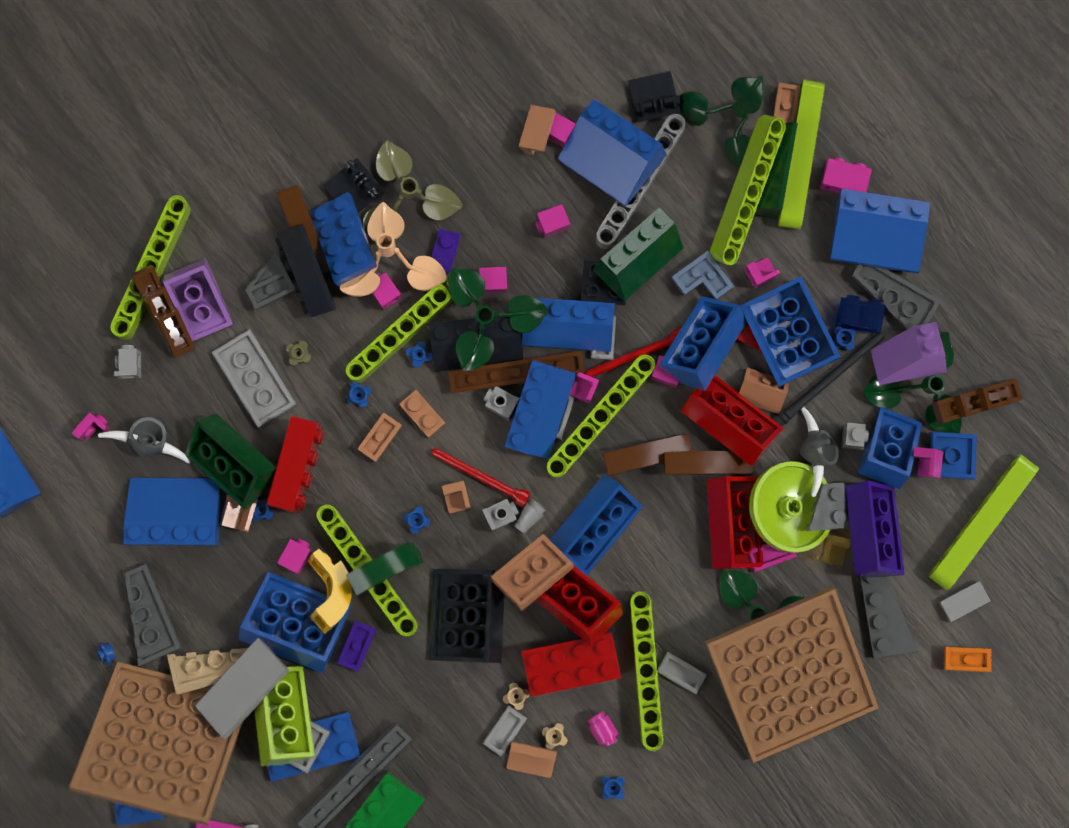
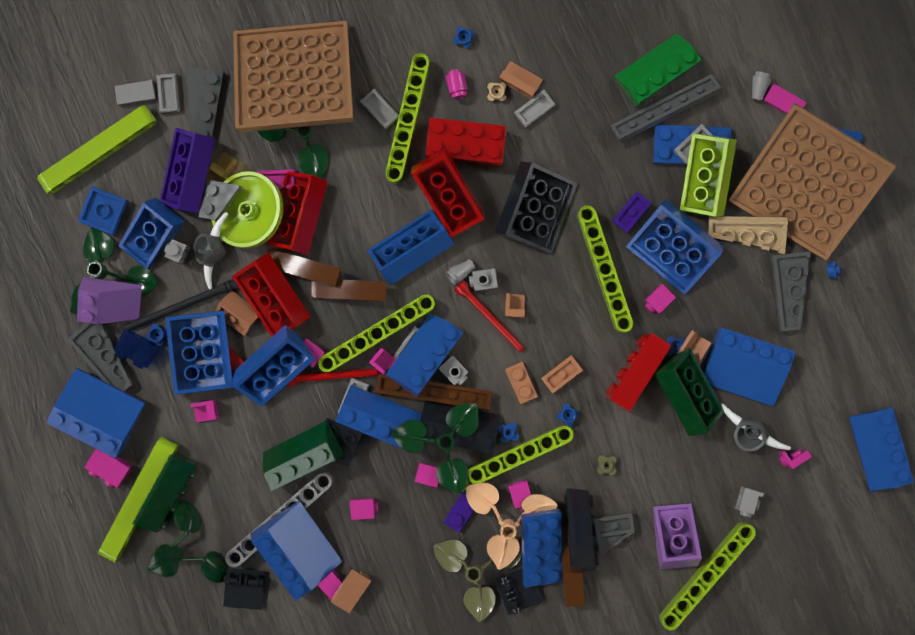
camera: 160 degrees left, 5 degrees up
(163, 311) = (708, 535): reddish brown slope -> none
(242, 688) = (734, 204): light grey tile -> none
(254, 378) = (649, 456): light grey tile -> none
(338, 591) = (633, 258): yellow arch -> none
(385, 567) = (590, 264): dark green arch -> none
(416, 526) = (557, 298): blue plate -> none
(509, 697) = (517, 137): tan plate -> none
(532, 572) = (473, 222): nougat plate -> none
(706, 272) = (254, 427): sand blue plate -> none
(747, 189) = (192, 482): lime beam -> none
(786, 102) = (136, 545): nougat plate -> none
(927, 613) = (168, 93): none -> light grey tile
(929, 462) = (123, 210): dark pink panel -> none
(967, 659) = (149, 46): orange plate -> none
(976, 401) = (67, 248): reddish brown slope -> none

